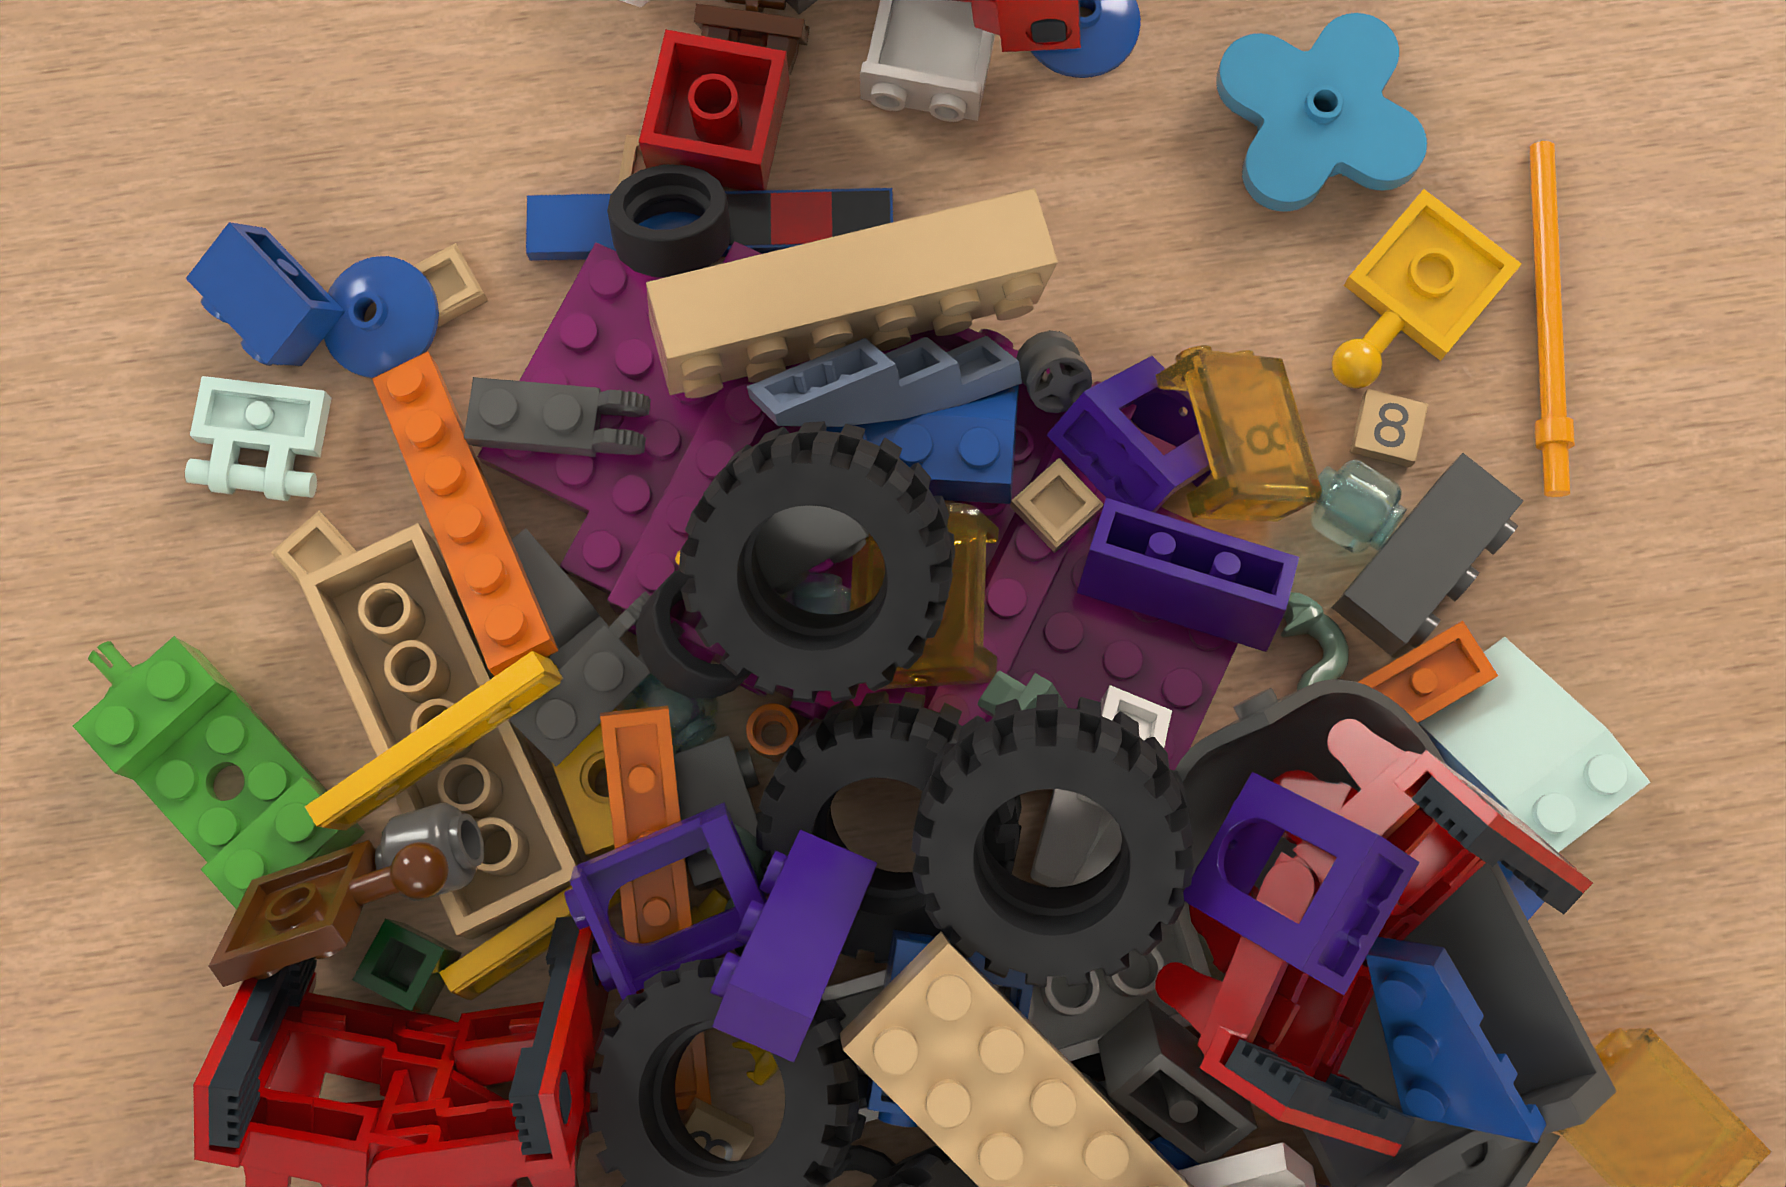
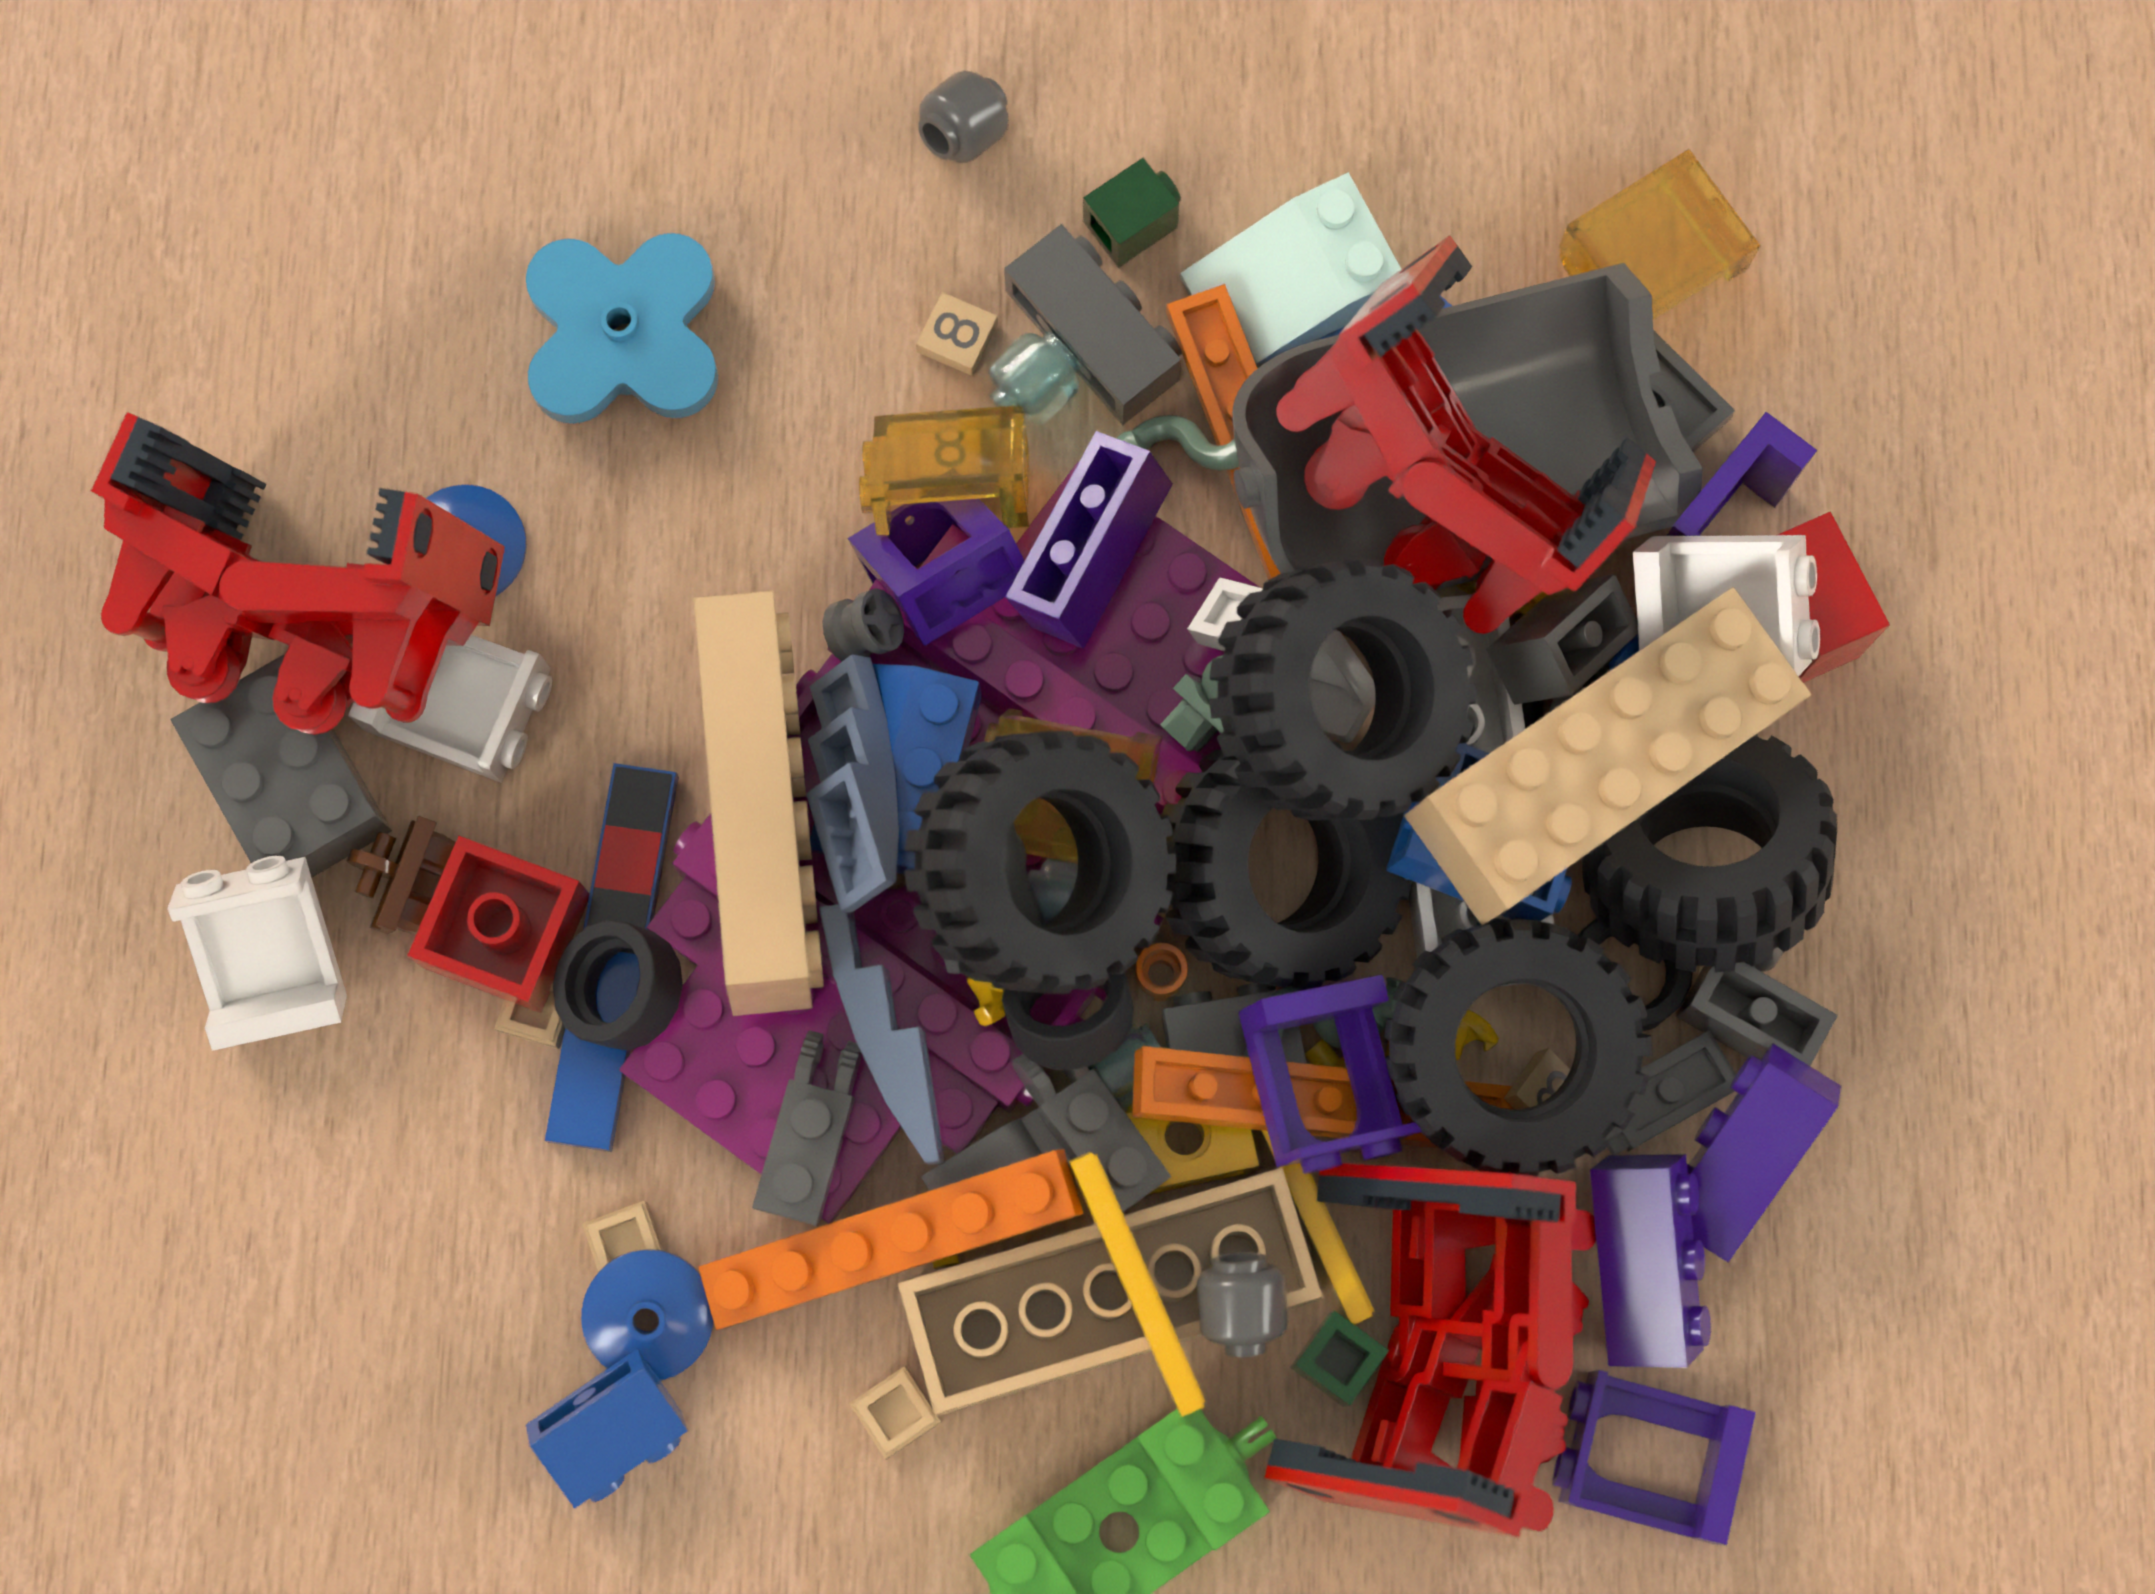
camera: 80 degrees left, 0 degrees up
(259, 418) = (738, 1452): light aqua plate -> none
(316, 905) = (1284, 1413): reddish brown plate -> none
(627, 473) = (894, 1056): none -> sand blue slope
(790, 944) = (1398, 947): dark purple brick -> none
(1056, 505) = (996, 649): tan tile -> none
(1347, 907) = (1460, 435): dark purple panel -> none
(1424, 279) = (819, 263): yellow plate -> none
(1437, 1047) = (1566, 401): blue wing -> none
(1554, 430) = (989, 183): light orange bar -> none
(1558, 575) = (1132, 211): none -> dark green brick
(1617, 391) = (963, 117): none -> dark grey head

